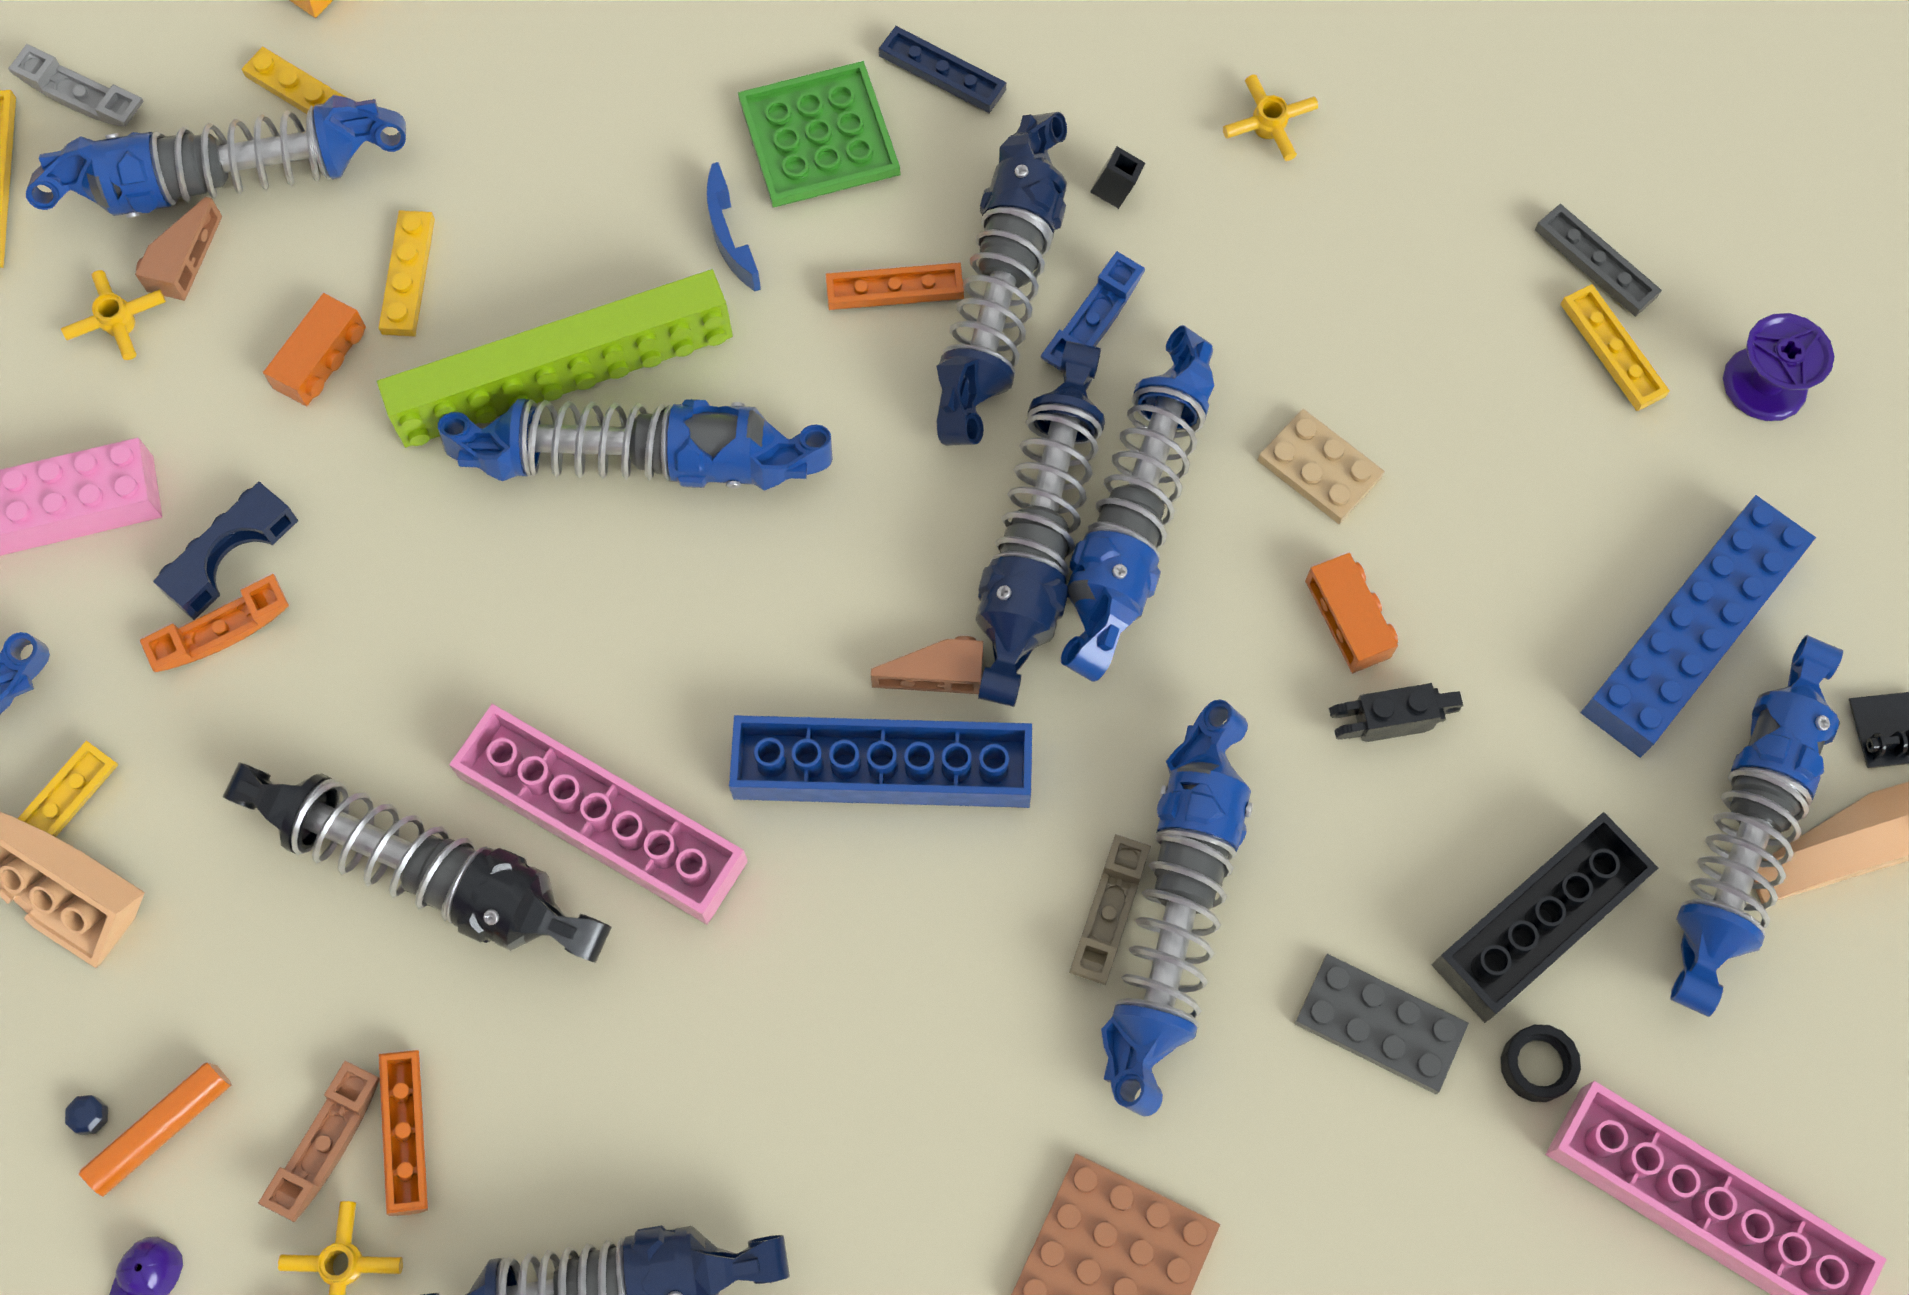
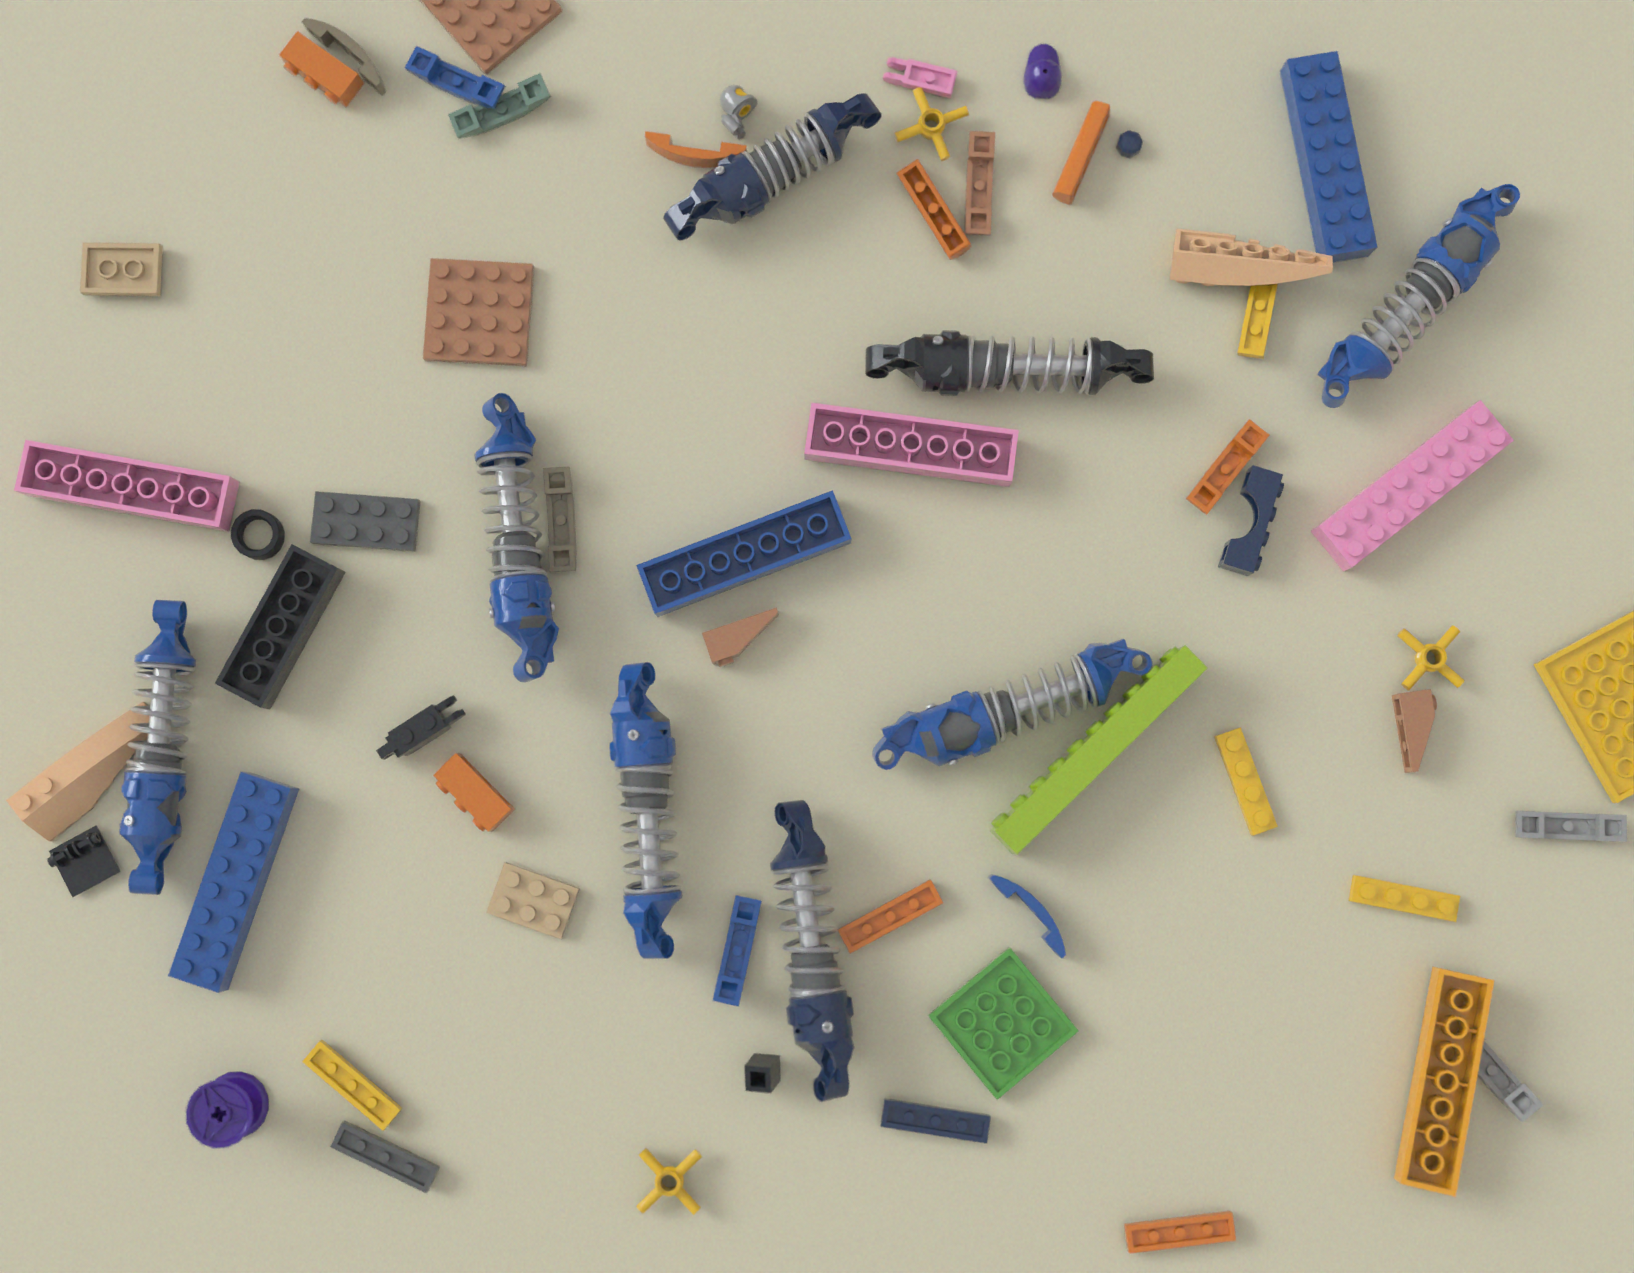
camera: 160 degrees right, 15 degrees up
(156, 169) = (1466, 774): piece -> none
(315, 349) = (1273, 690): orange brick -> none
(1026, 582) = (699, 715): piece -> none

